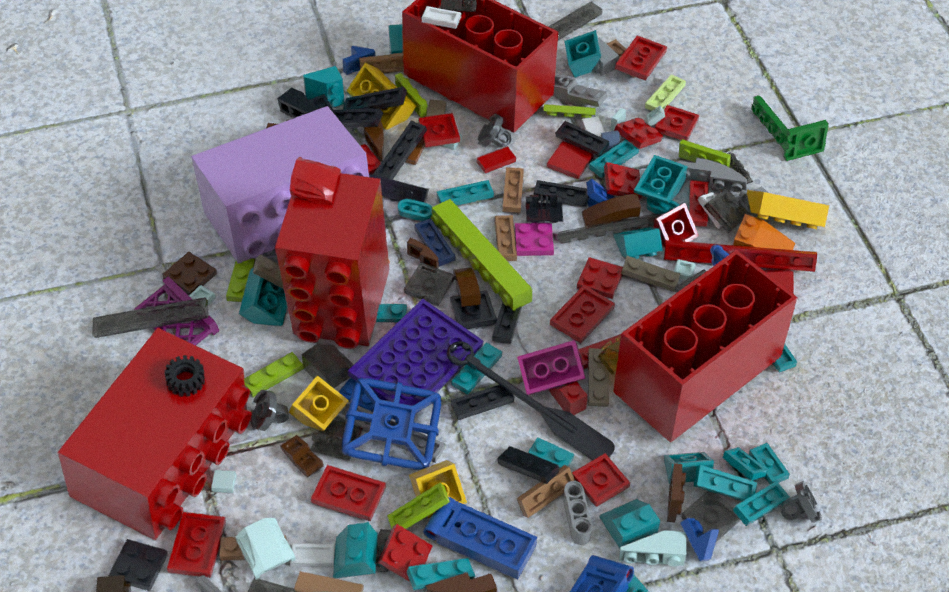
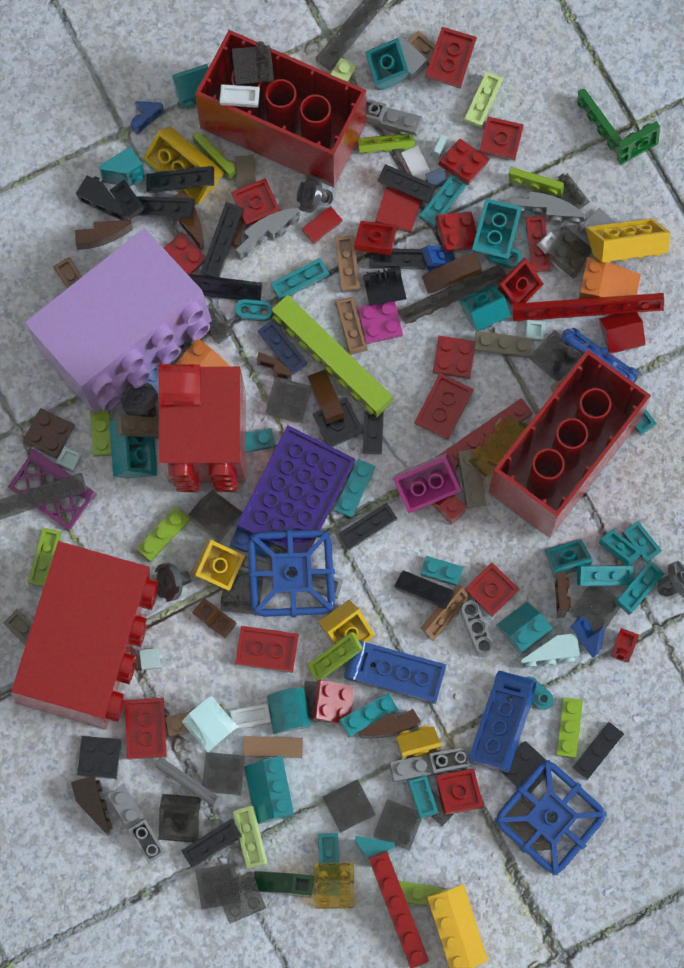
camera: 10 degrees left, 25 degrees up
(184, 365) = (101, 603): black tyre -> none
(385, 63) = (174, 116): medium nougat tile -> none
(445, 151) = (272, 226): none -> light grey slope
(545, 172) = (375, 237): none -> red plate
(561, 423) = (446, 536): black piece -> none
(655, 115) = (478, 135): light aqua tile -> none
(736, 558) = (624, 645): none -> red bracket

